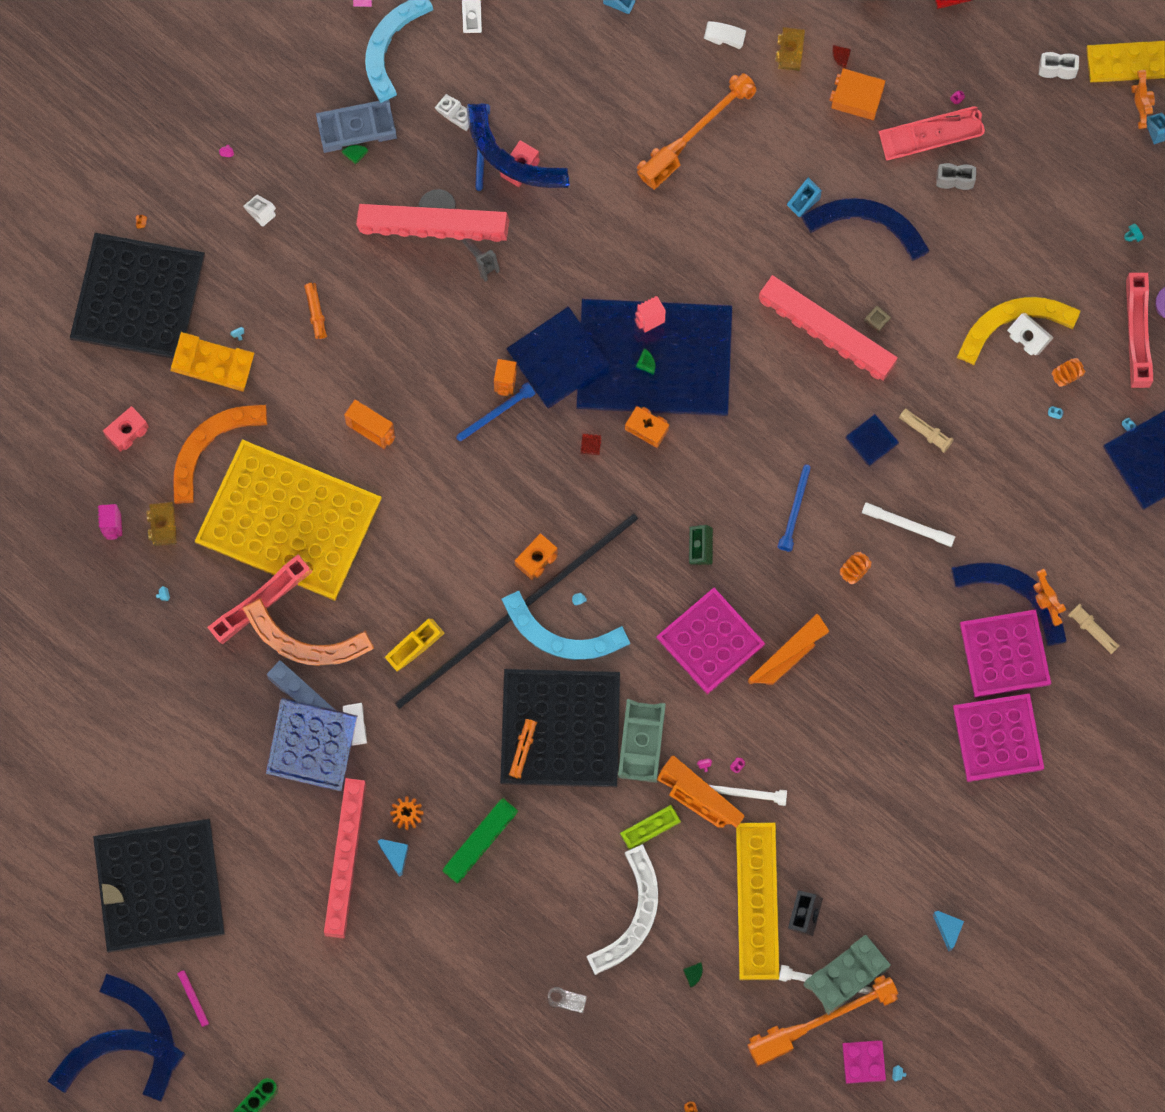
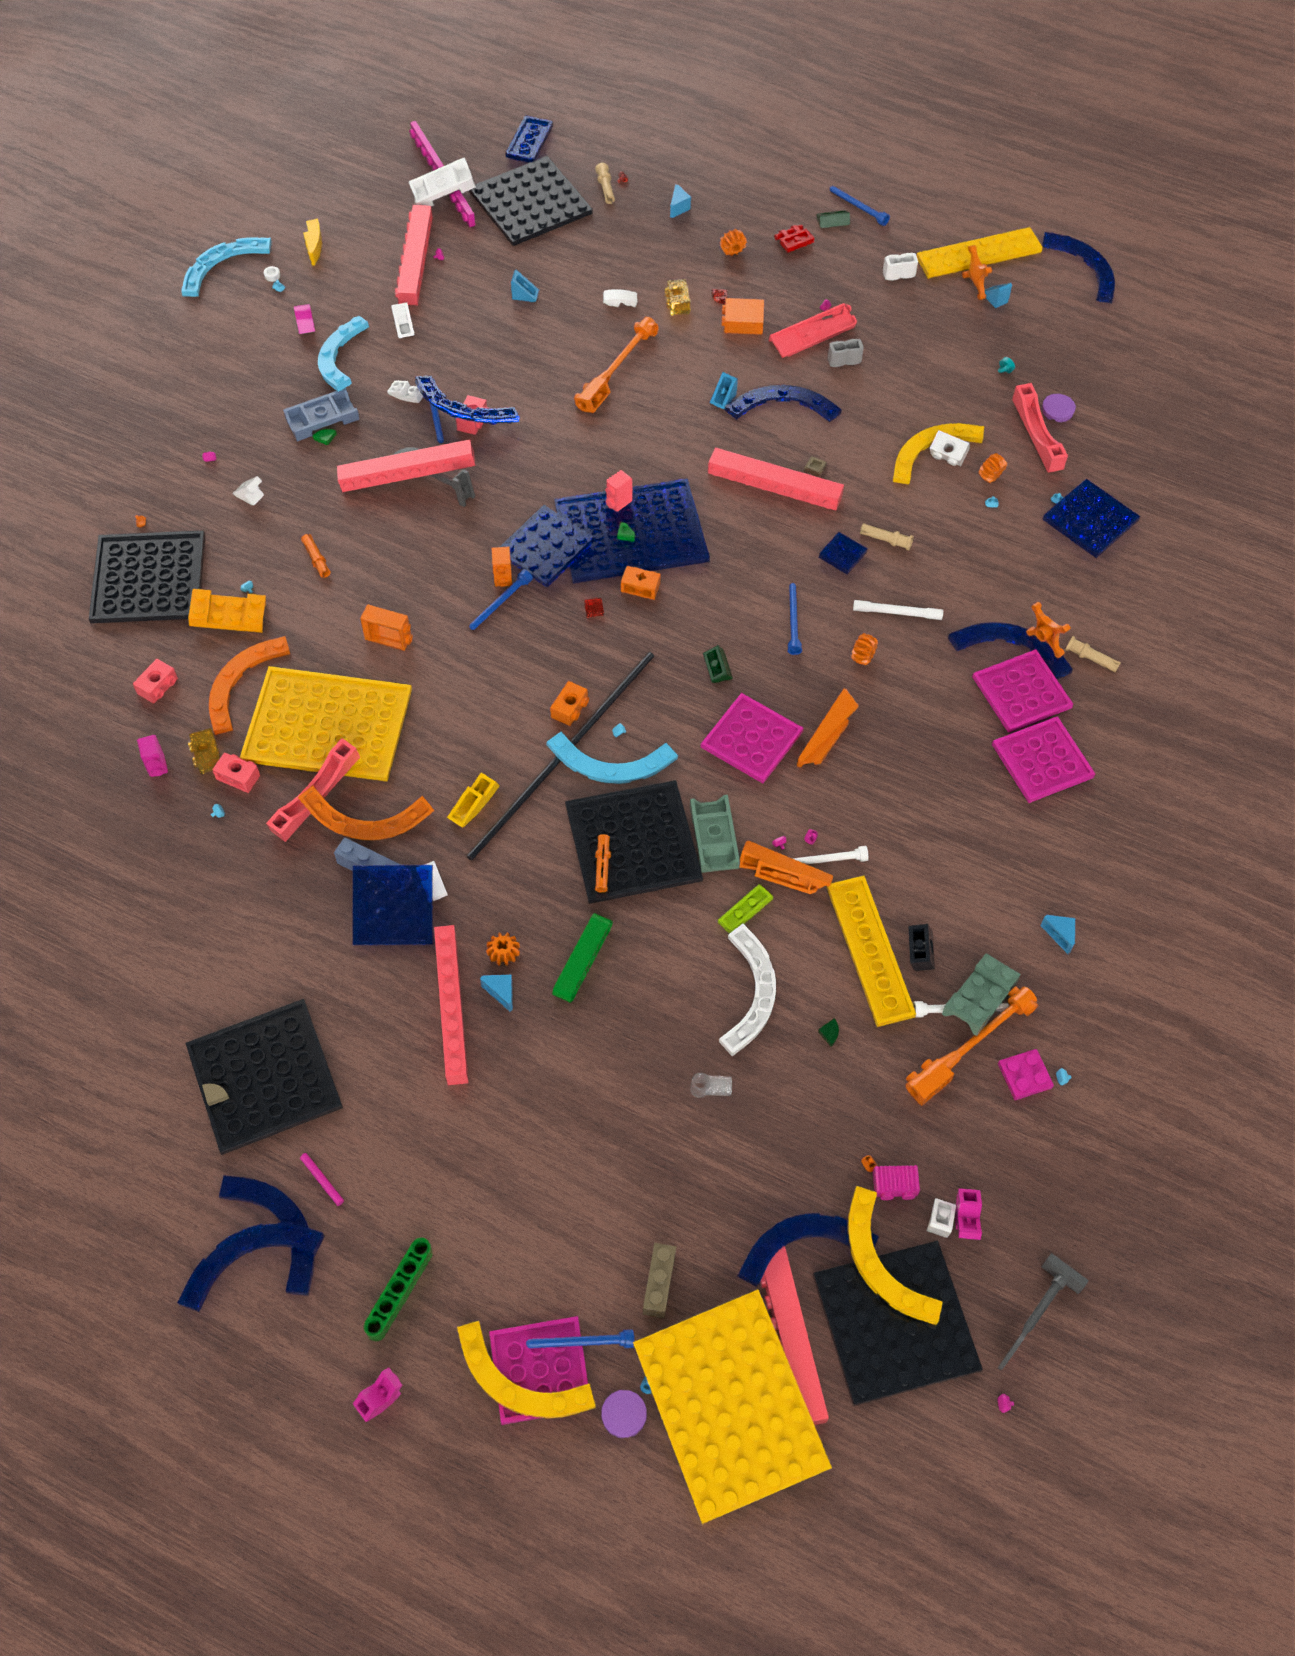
camera: 15 degrees left, 15 degrees down
(195, 565) = (226, 772): none -> coral brick

